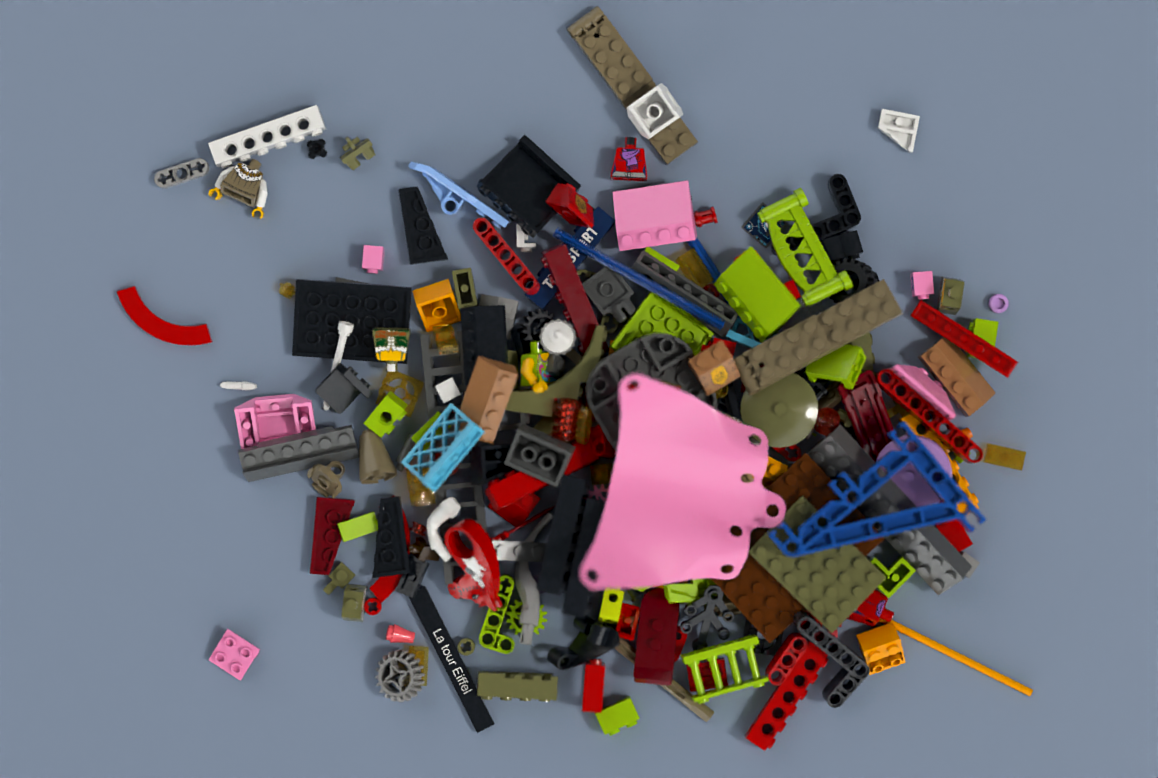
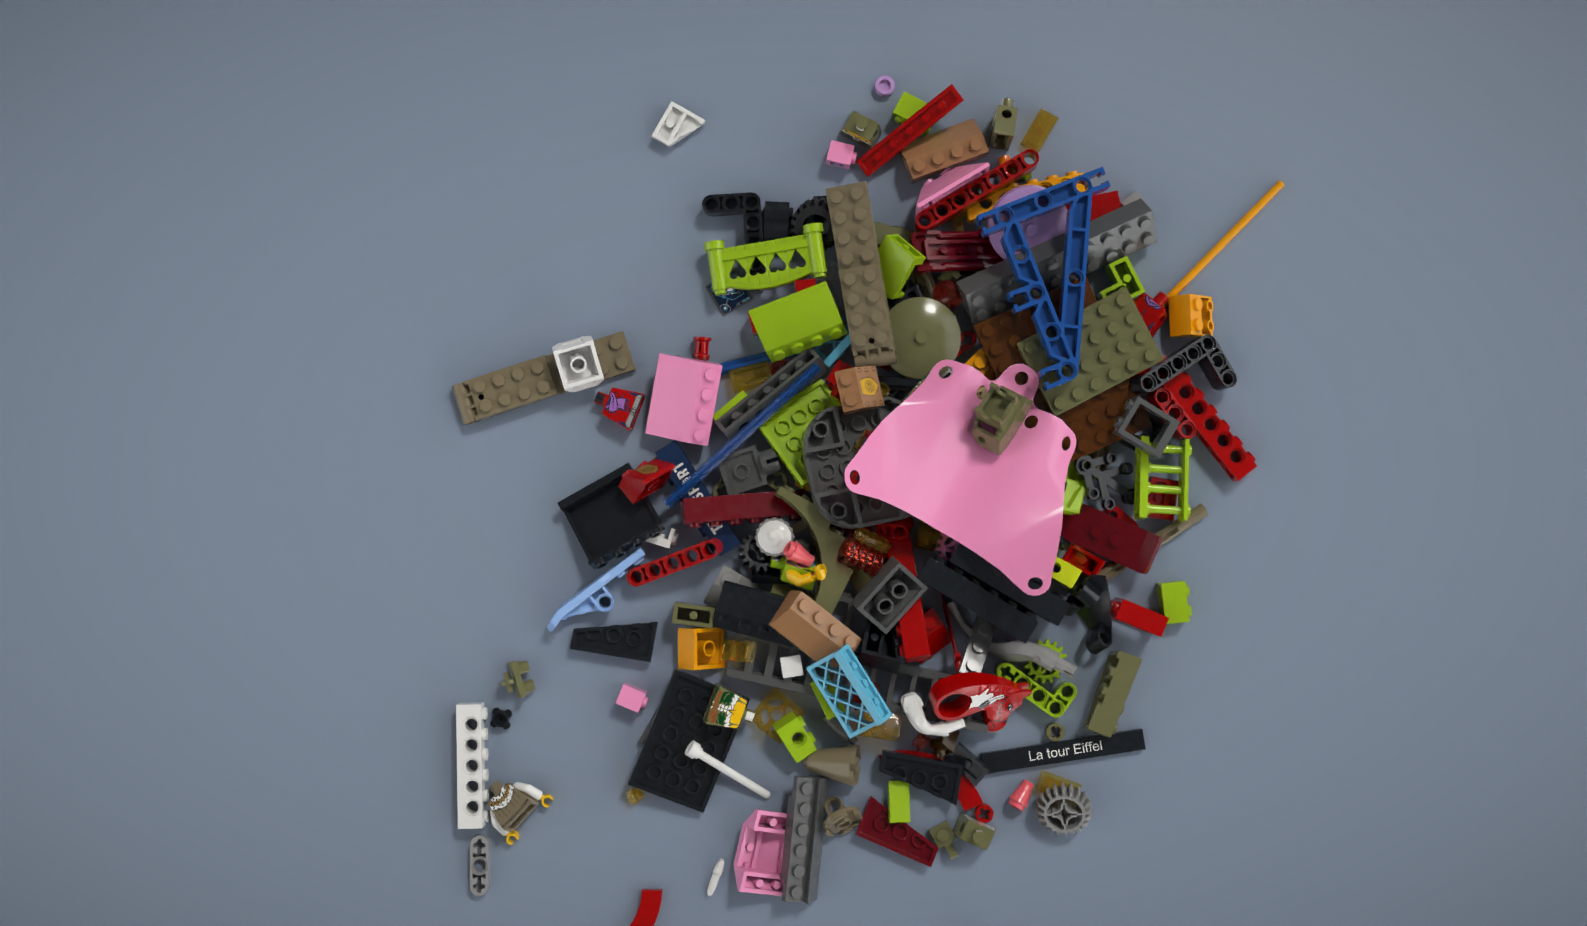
camera: 75 degrees left, 0 degrees up
(342, 388) = (753, 772): black bracket -> none
(550, 360) = (796, 552): none -> coral cone
(736, 503) = (1003, 411): none -> olive piece
(761, 655) = (1162, 437): none -> dark grey window
(998, 422) = (1003, 125): none -> olive torso

